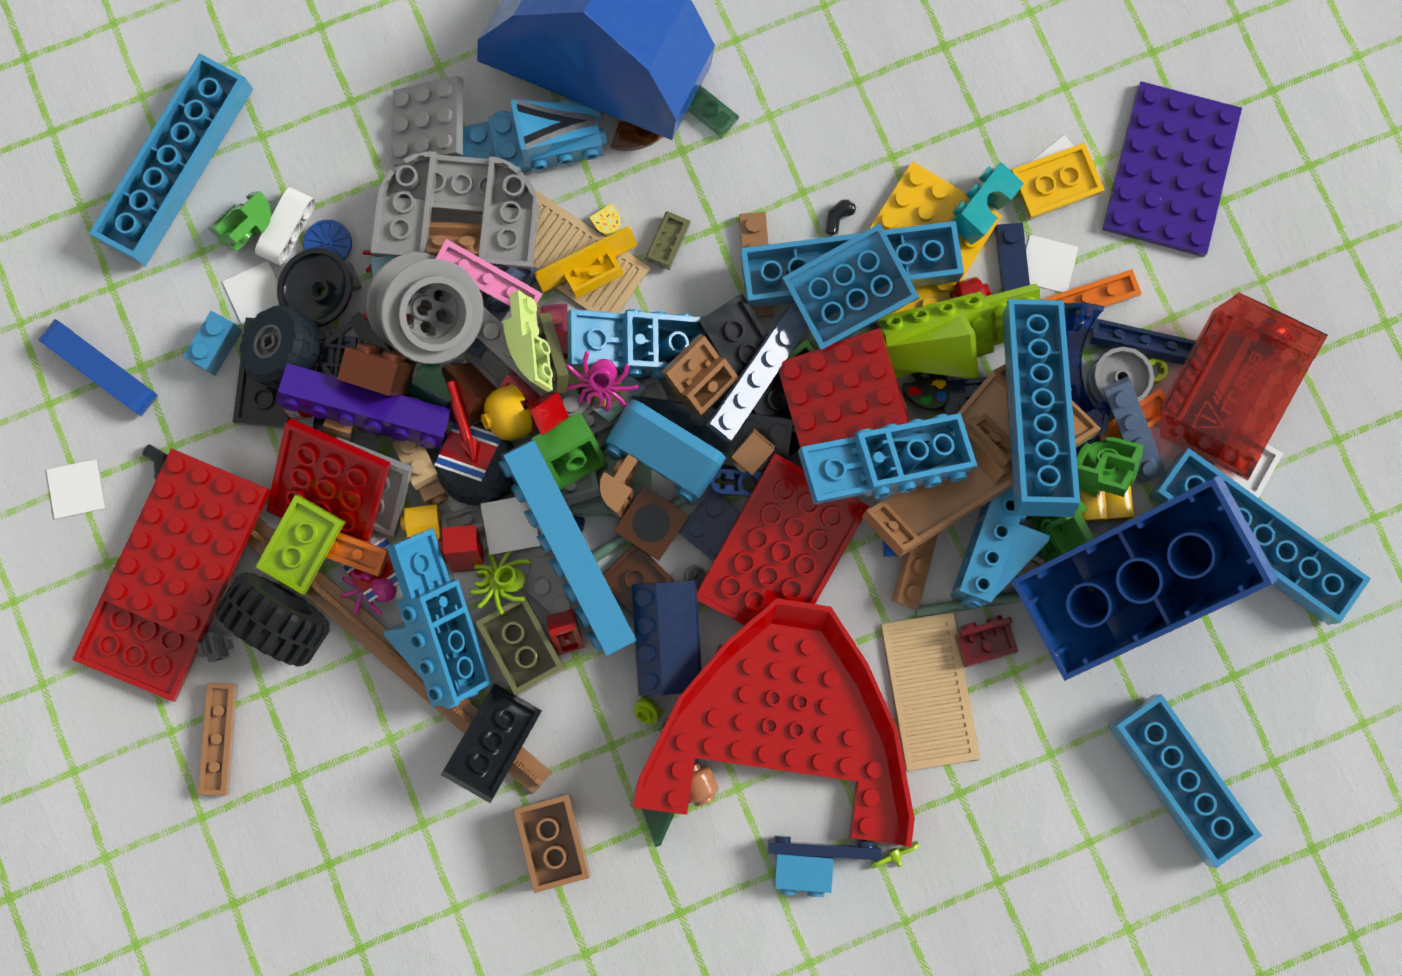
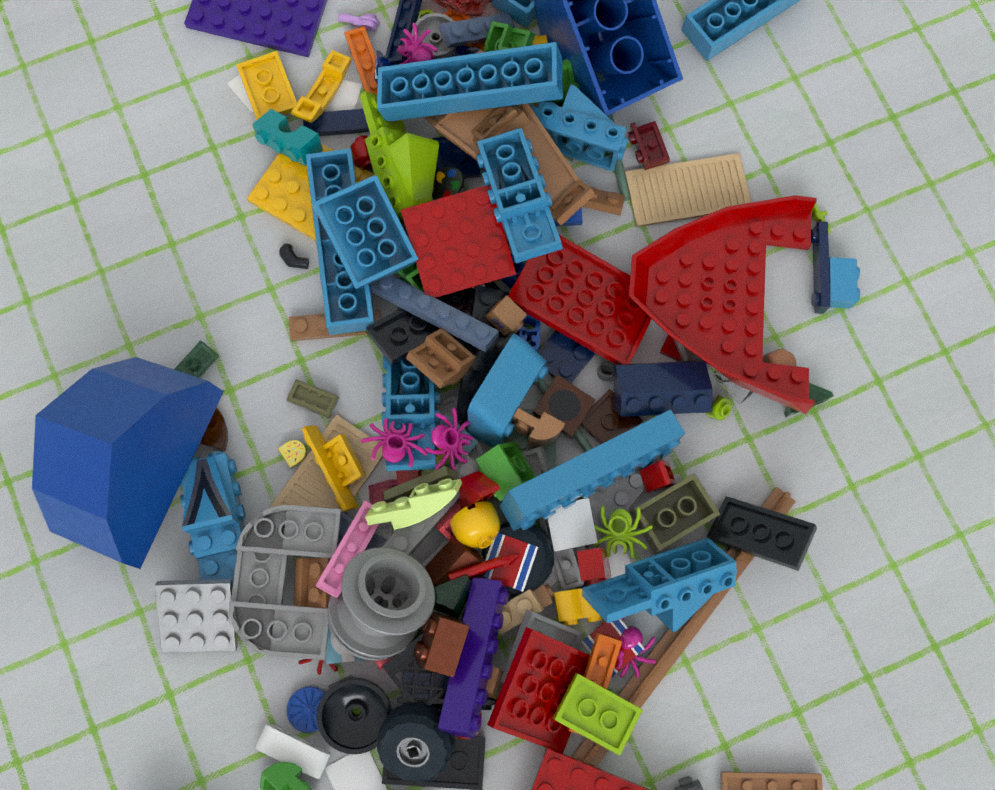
camera: 95 degrees left, 5 degrees down
(272, 619) = (670, 734): black tyre -> none
(552, 843) = (837, 481): medium nougat brick -> none
(596, 319) = (394, 442): none -> dark pink animal
(1054, 246) = (324, 88): none -> yellow slope
(1092, 356) = (414, 48): none -> dark pink animal
(1148, 297) = (368, 20): none -> lavender plate

